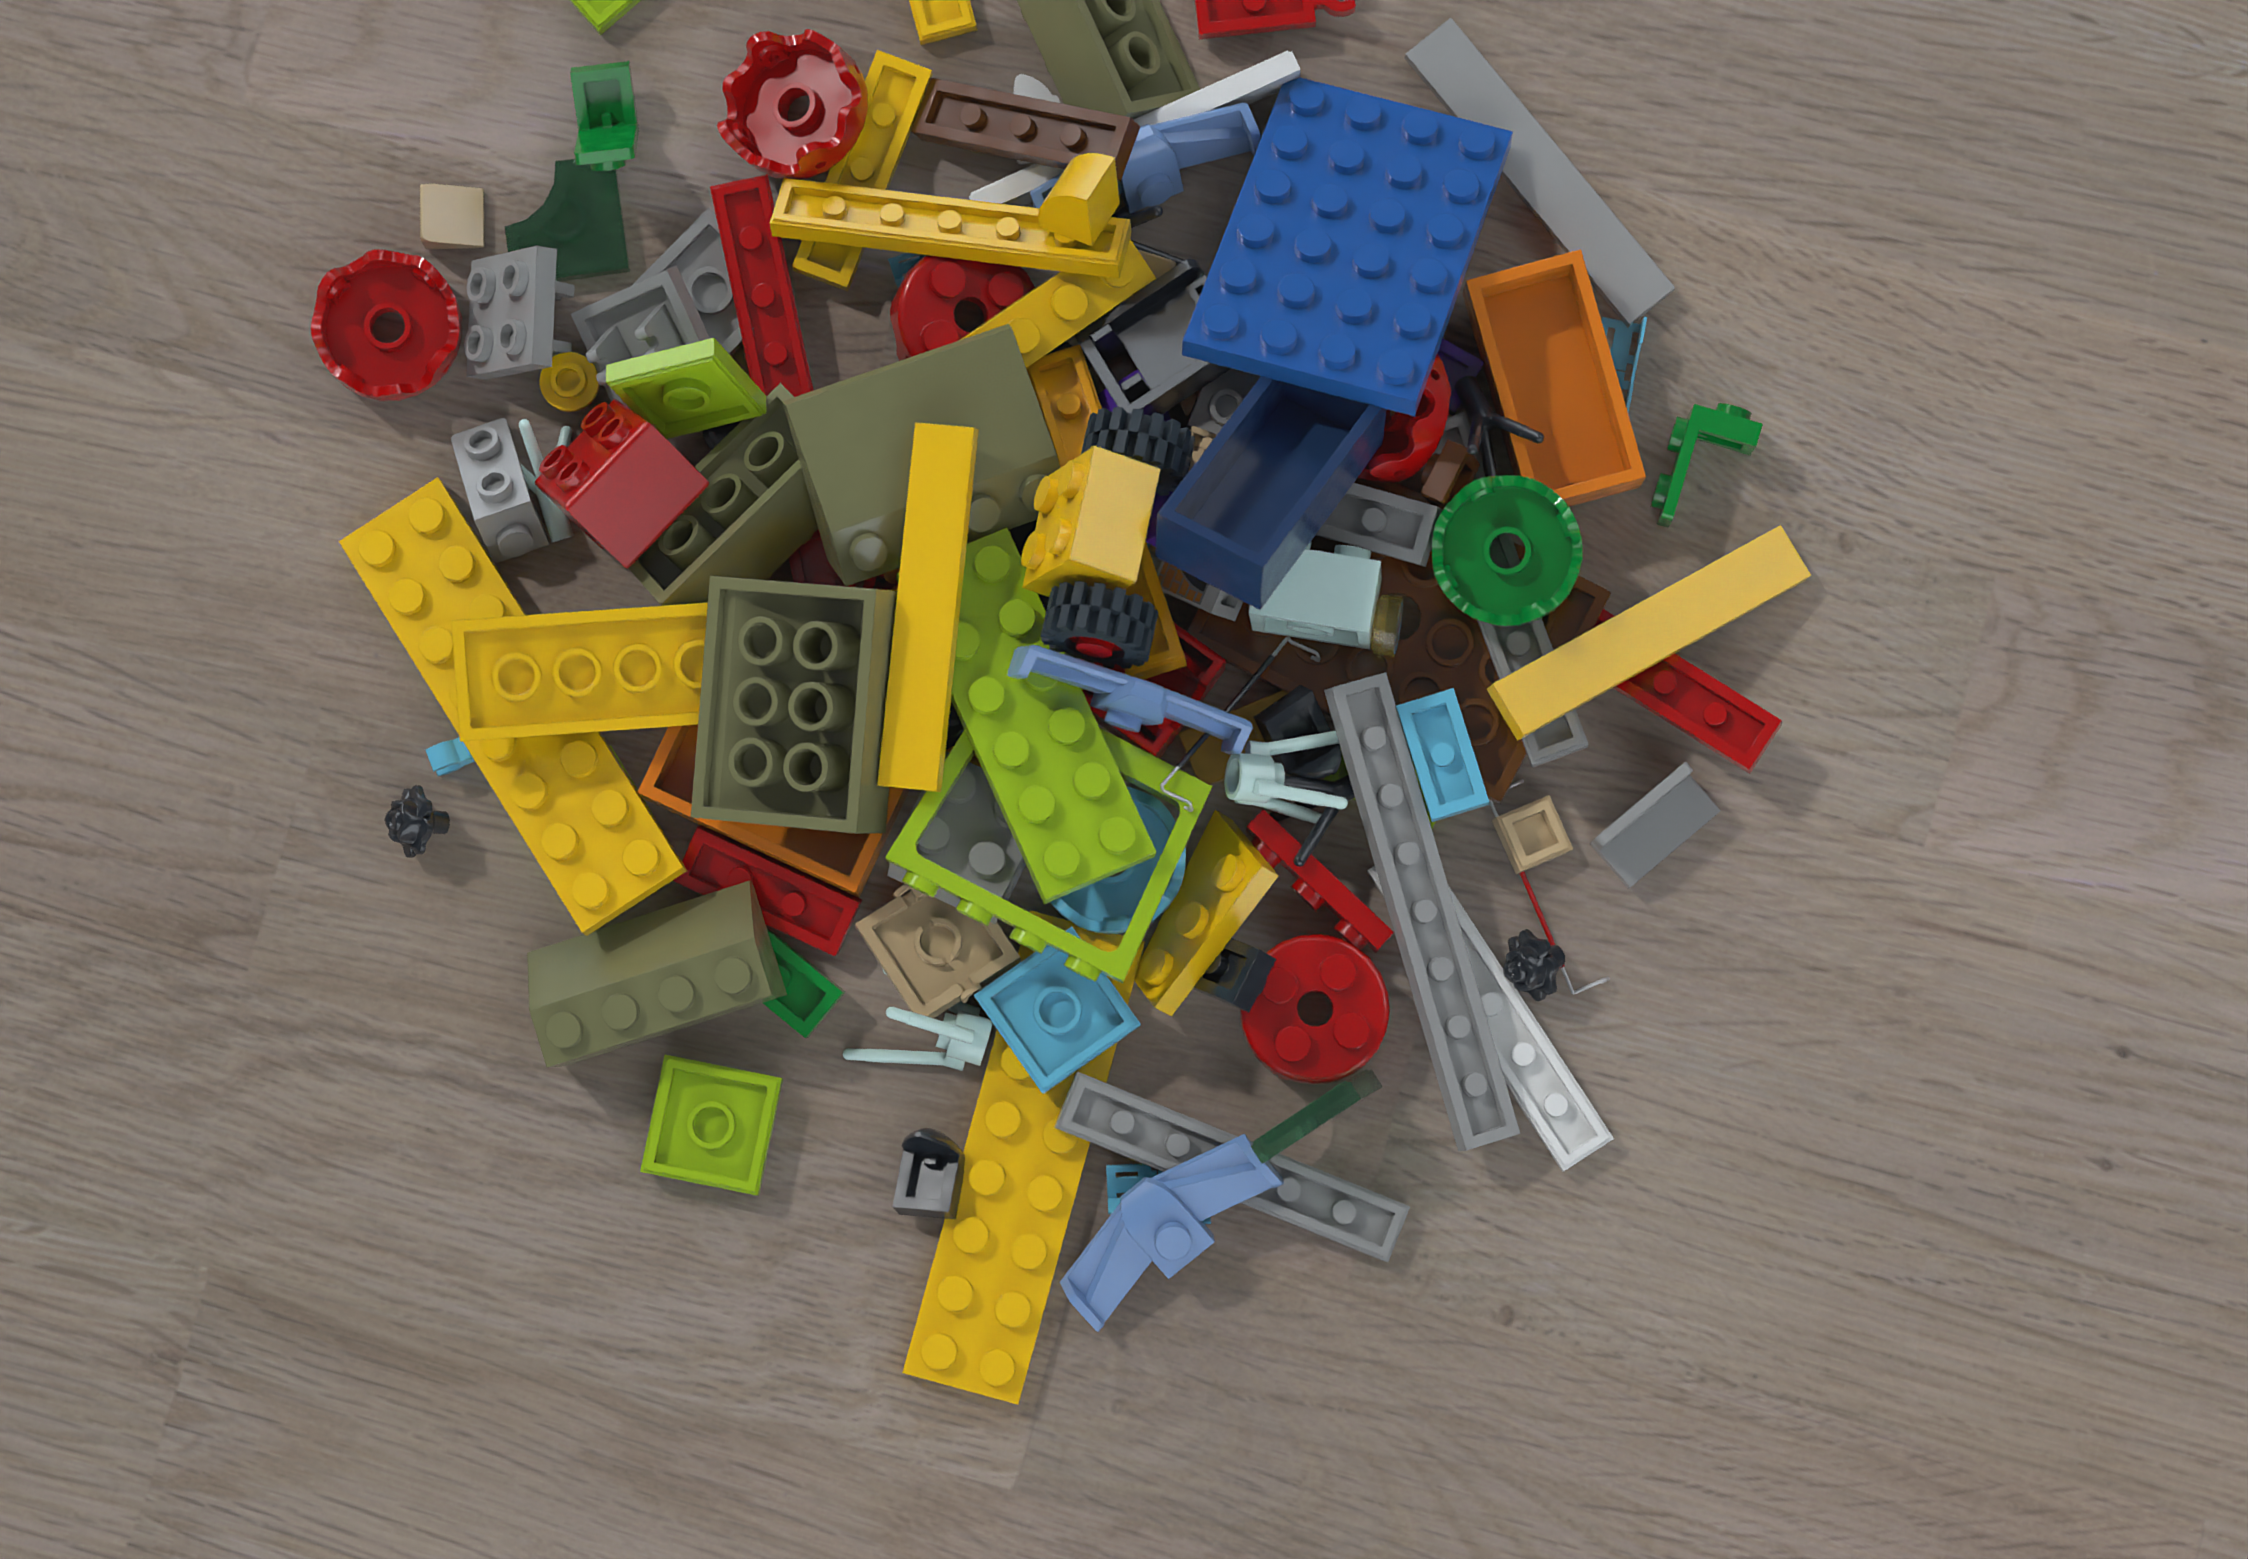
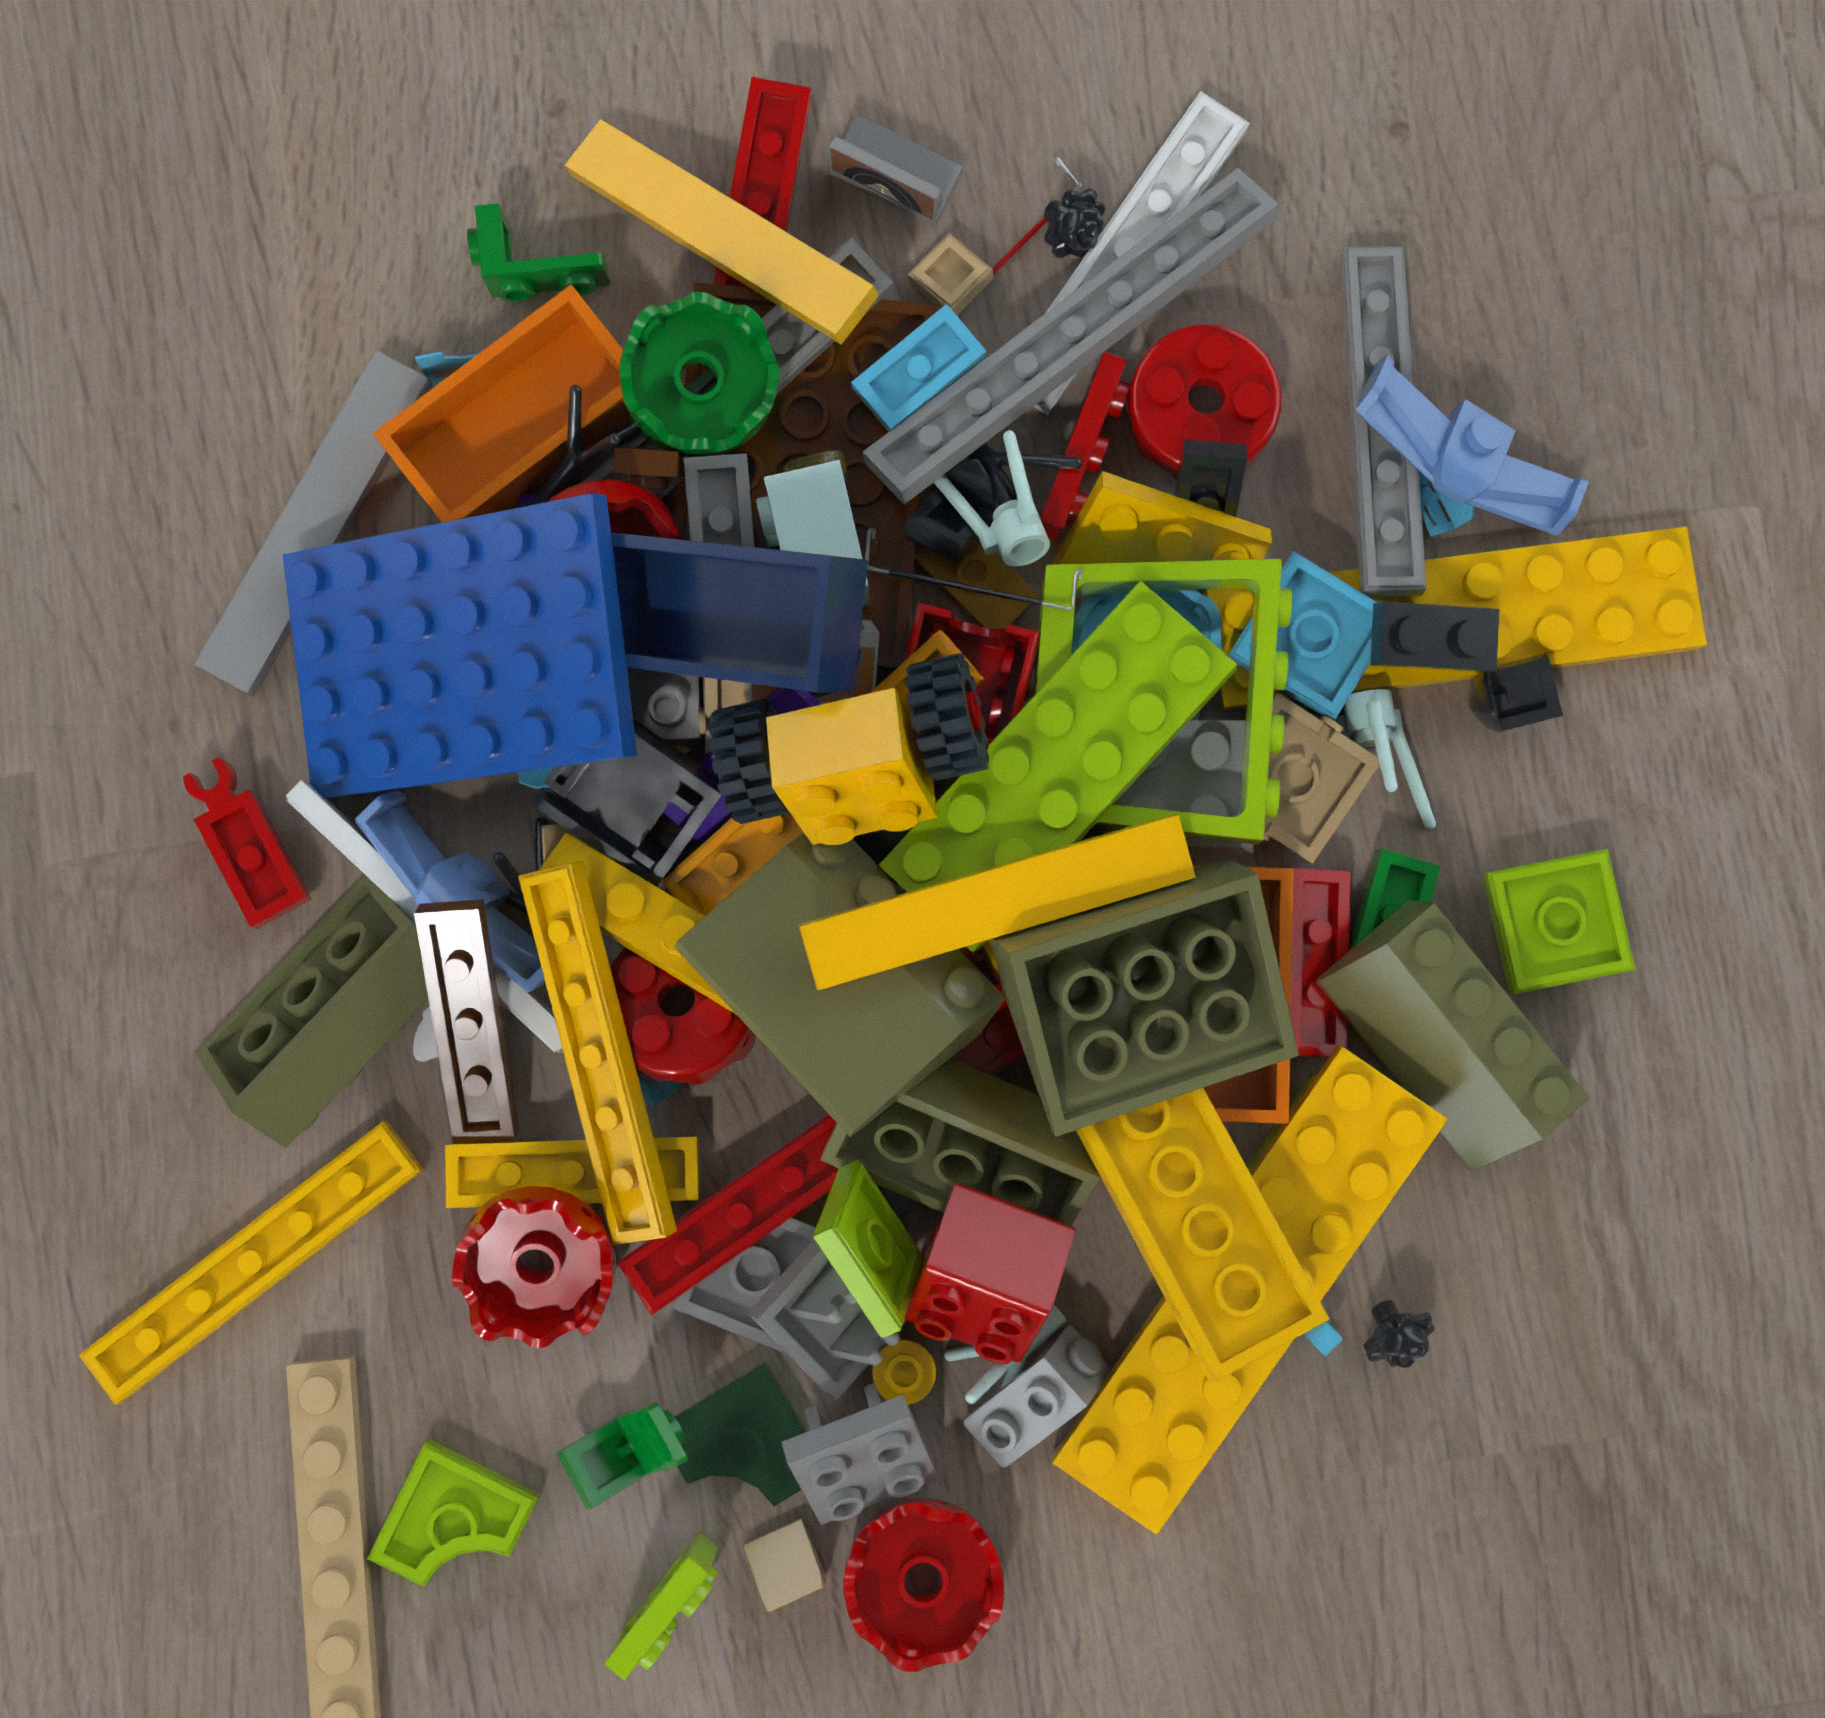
camera: 120 degrees left, 0 degrees up
(453, 85) = (679, 1590): none -> lime plate
(1008, 1115) = (1434, 637): none -> black plate
(1082, 198) = (516, 929): yellow brick -> none
(1131, 699) = (1006, 667): medium blue plate -> none
(1316, 1115) = (1309, 347): clear green tile -> none

